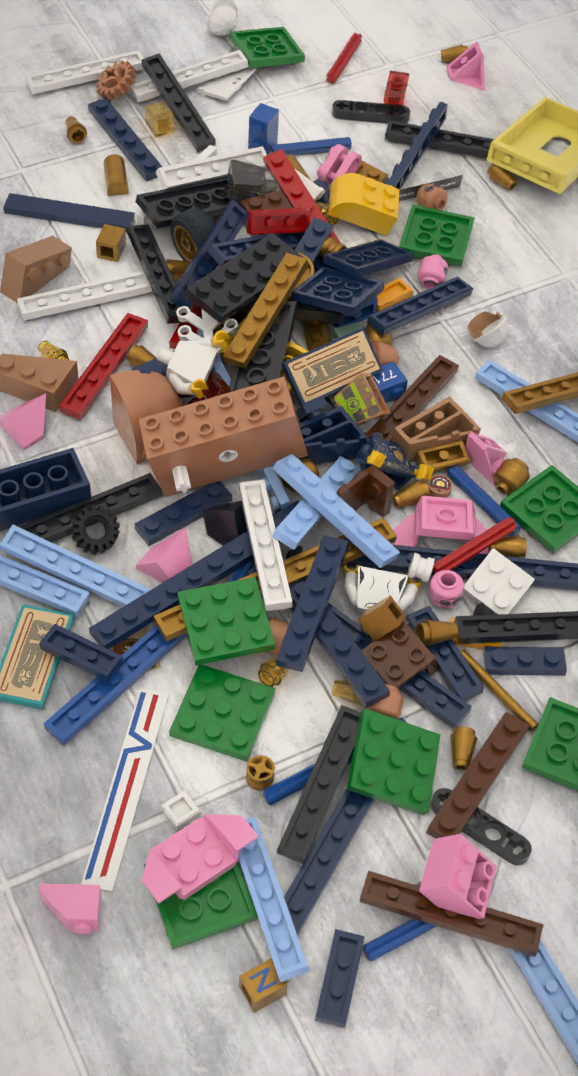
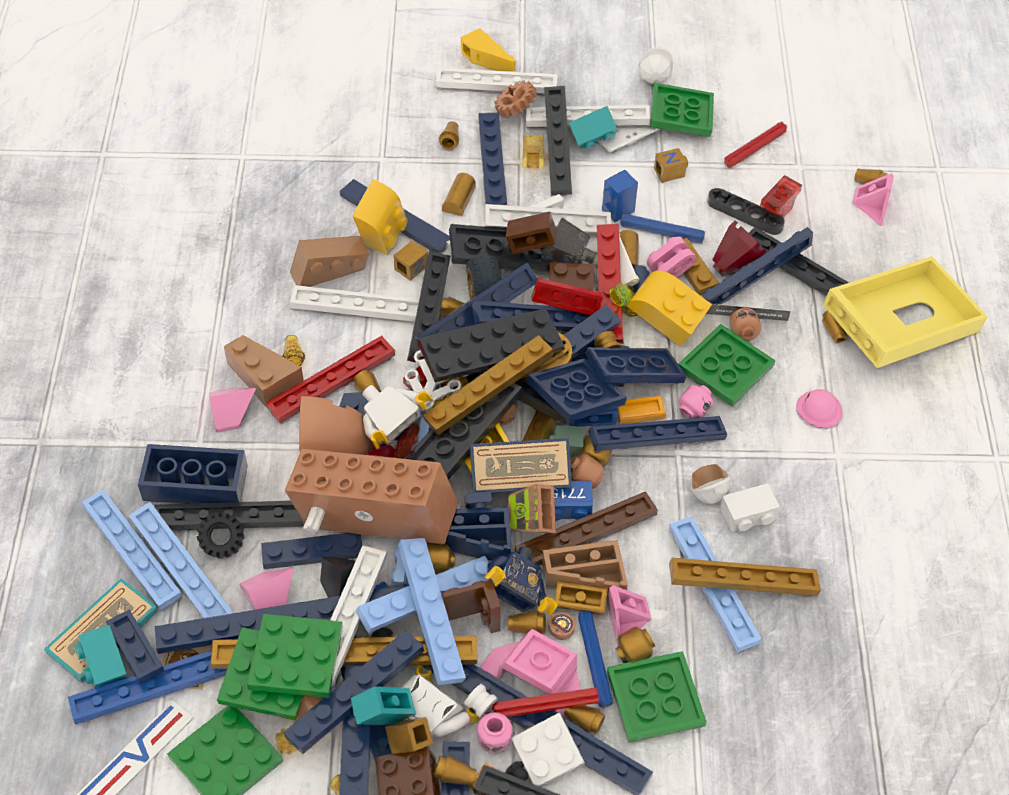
camera: 30 degrees right, 0 degrees up
(54, 675) = (100, 657): none -> teal brick
(61, 51) = (485, 52): none -> yellow slope
(68, 210) = (380, 217): none -> yellow brick
(204, 82) = (594, 127): none -> teal brick
(216, 177) = (531, 232): none -> reddish brown brick
(246, 592) = (295, 655): none -> green plate
(285, 94) = (670, 165): none -> pearl gold brick
(320, 205) = (621, 294): none -> clear neon green tile
(348, 602) = (383, 706): none -> teal brick
(390, 139) = (736, 250): none -> dark red cone
(529, 337) = (749, 508): none -> white brick
(530, 242) = (819, 408): none -> bright pink hat

